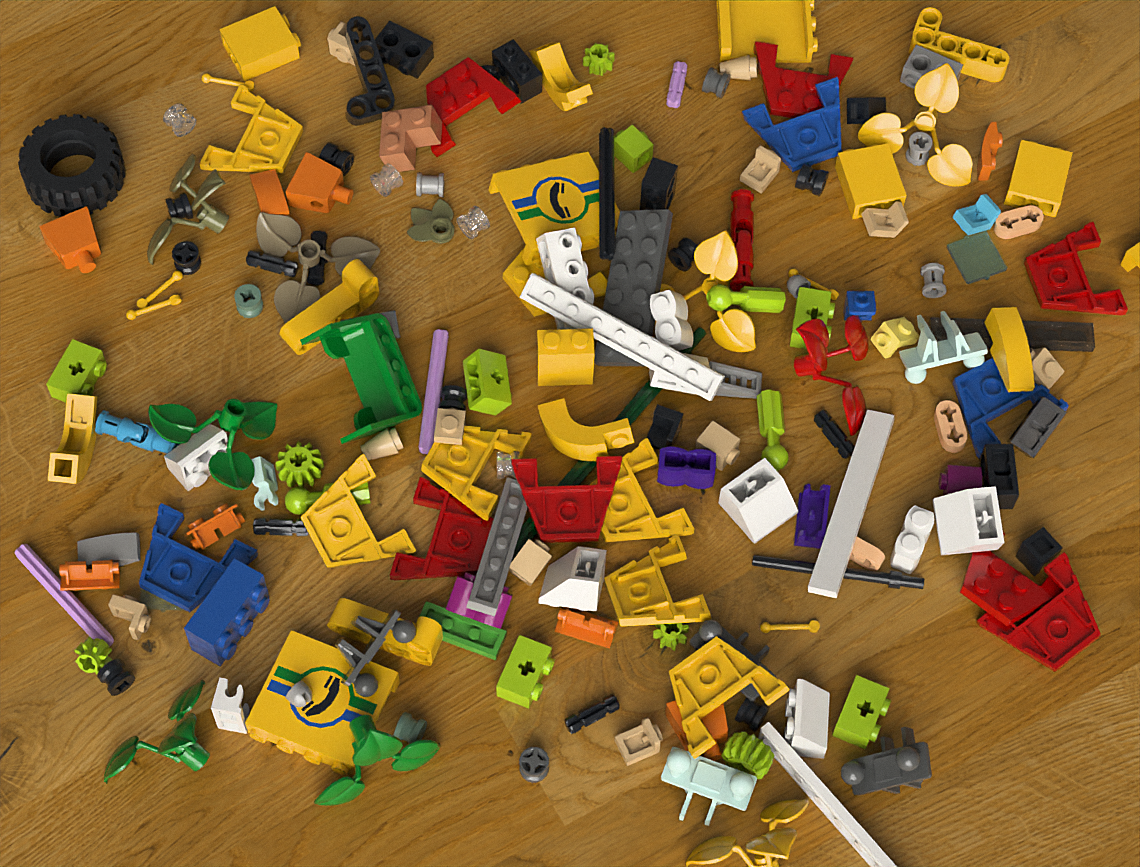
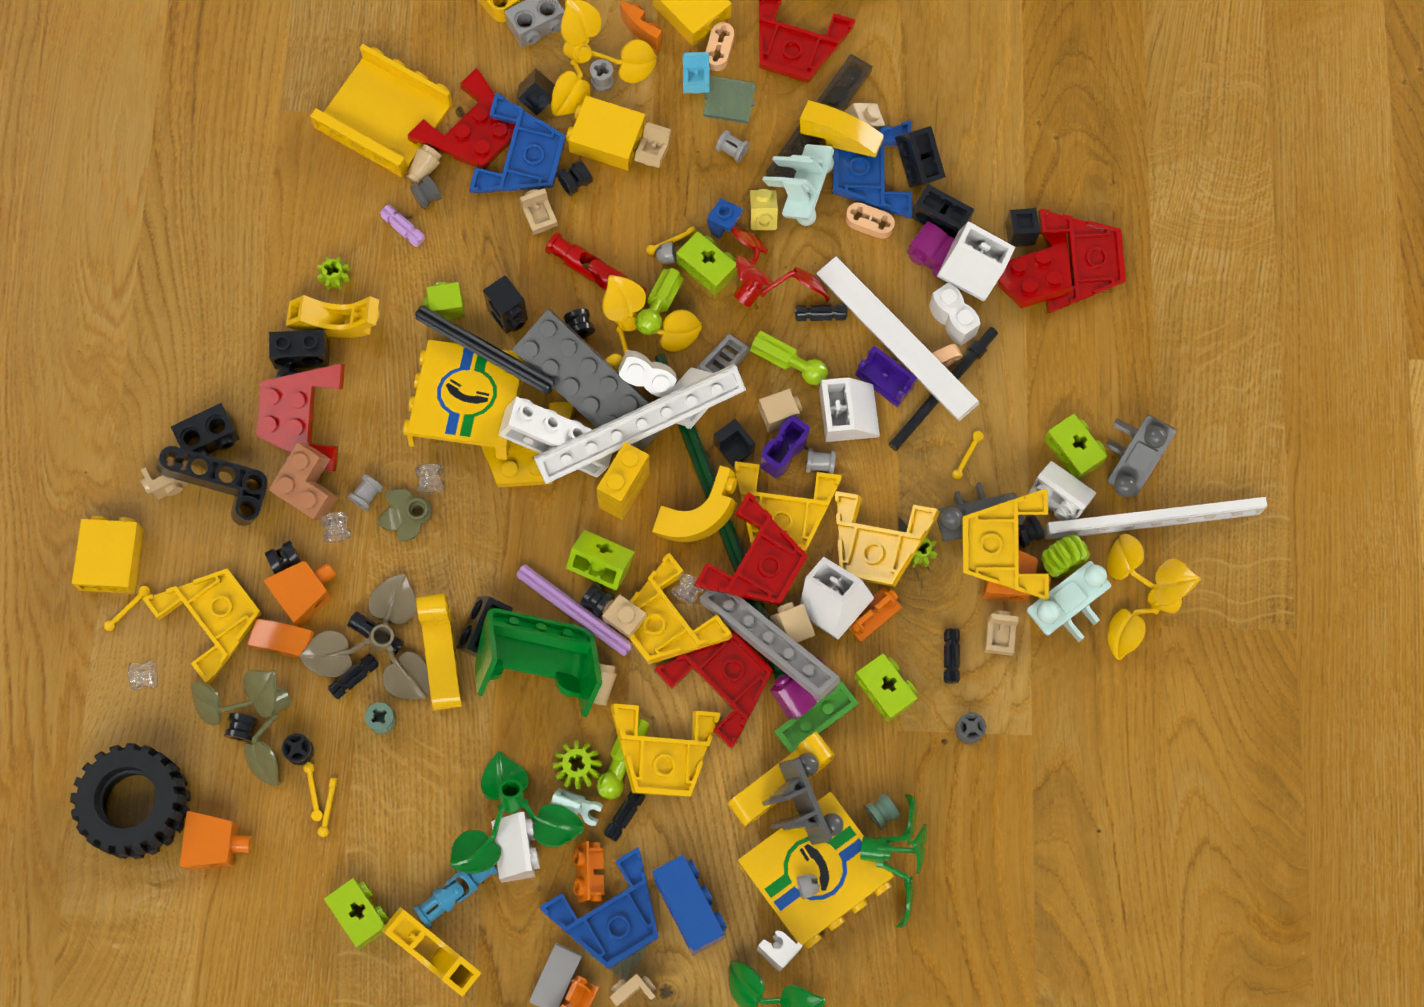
camera: 60 degrees left, 10 degrees up
(696, 506) = (820, 461): none -> light grey bush

